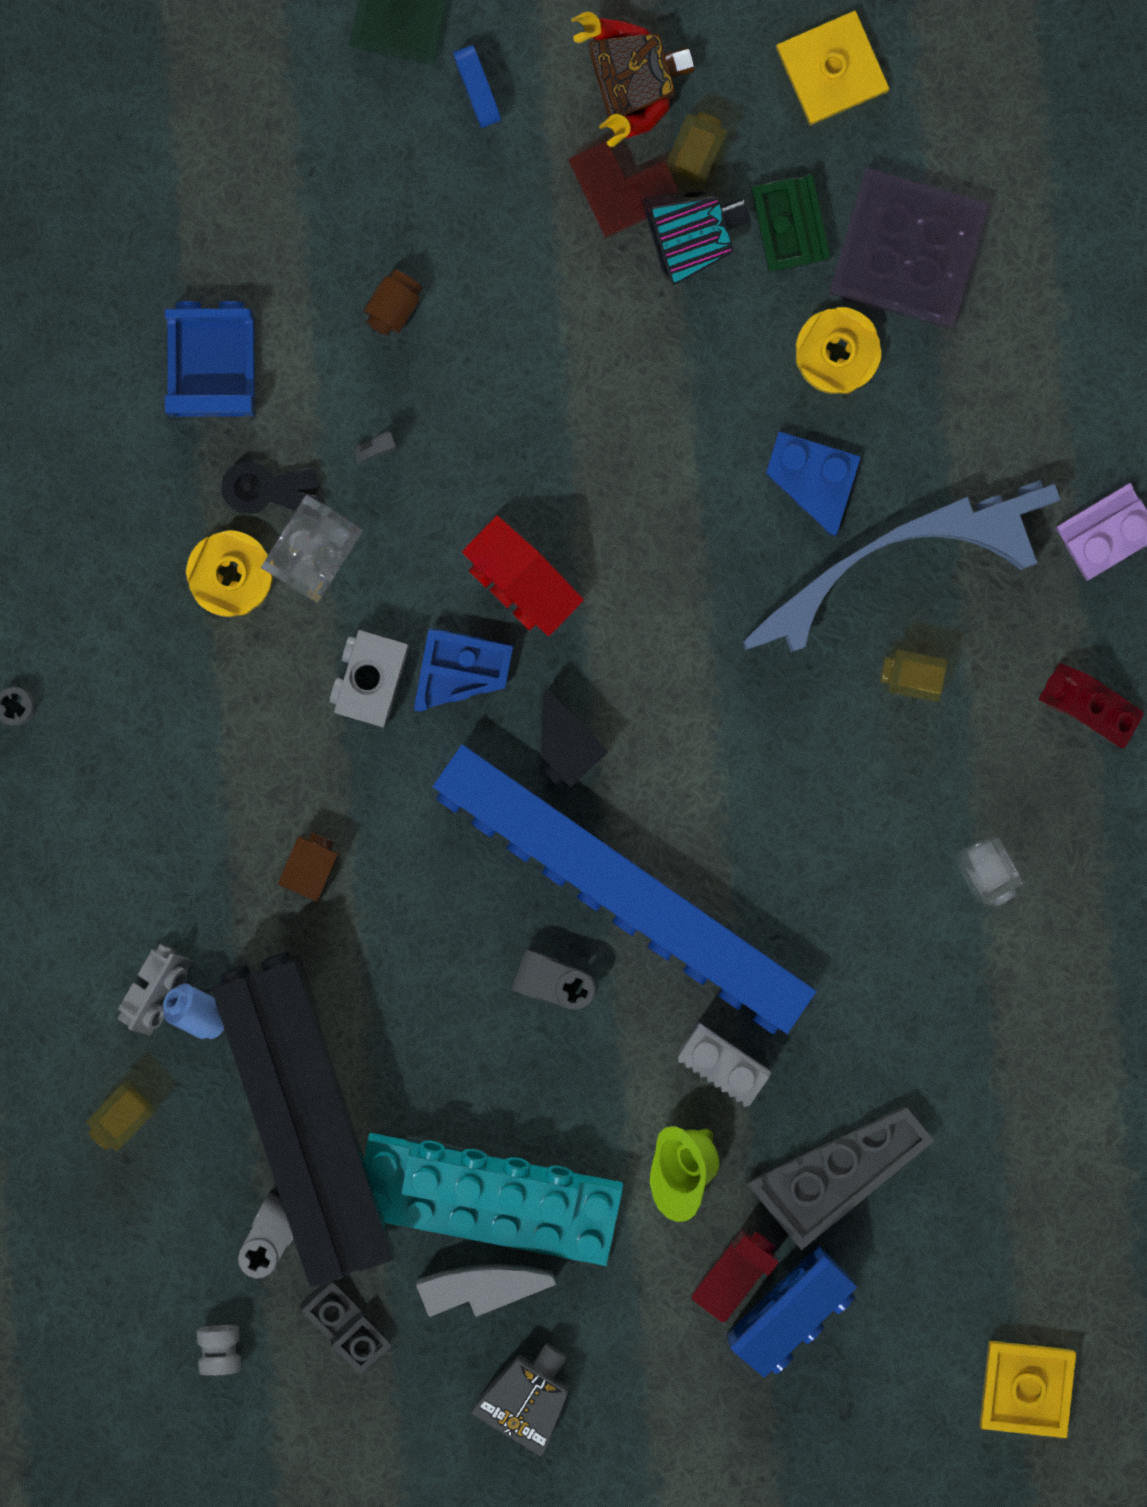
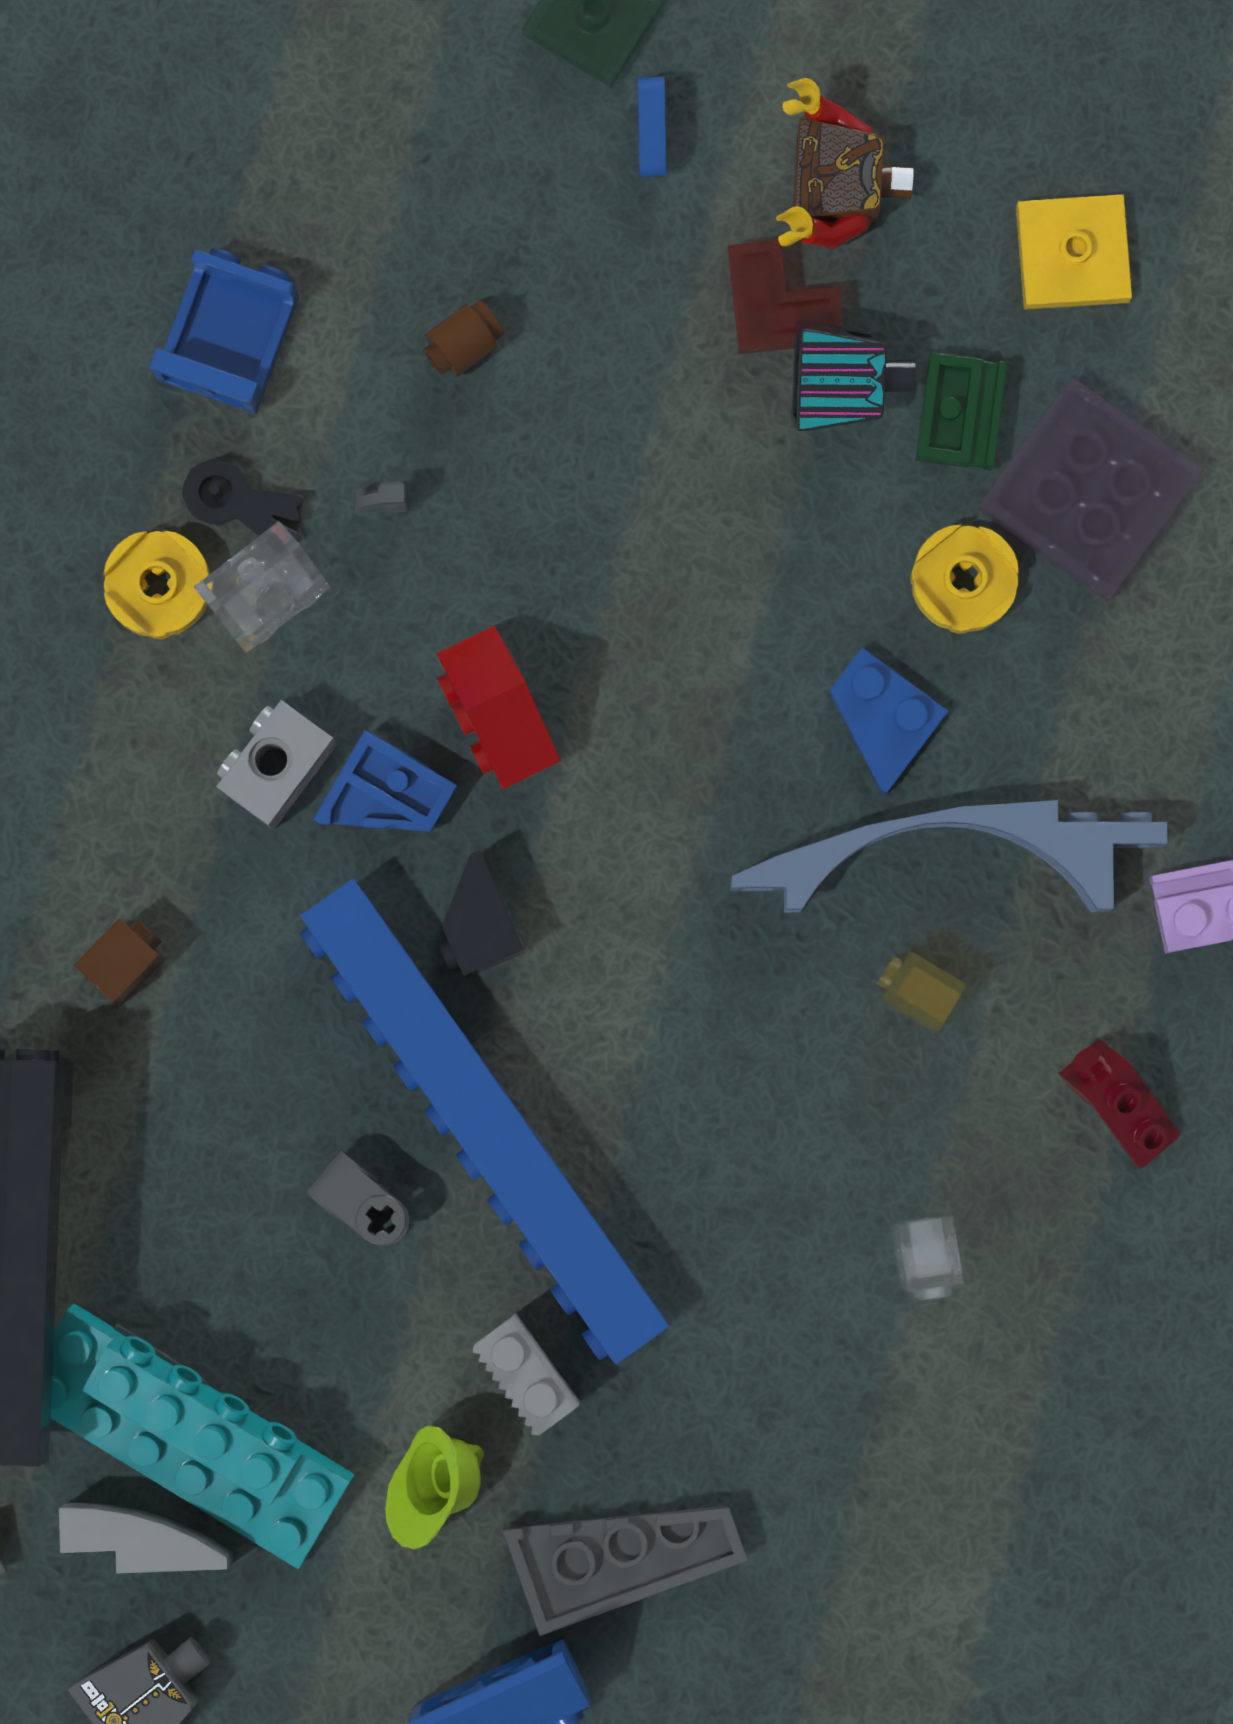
camera: 20 degrees right, 5 degrees down
(697, 147) = (882, 285): clear yellow brick -> none
(735, 1274) = (449, 1636): dark red bracket -> none

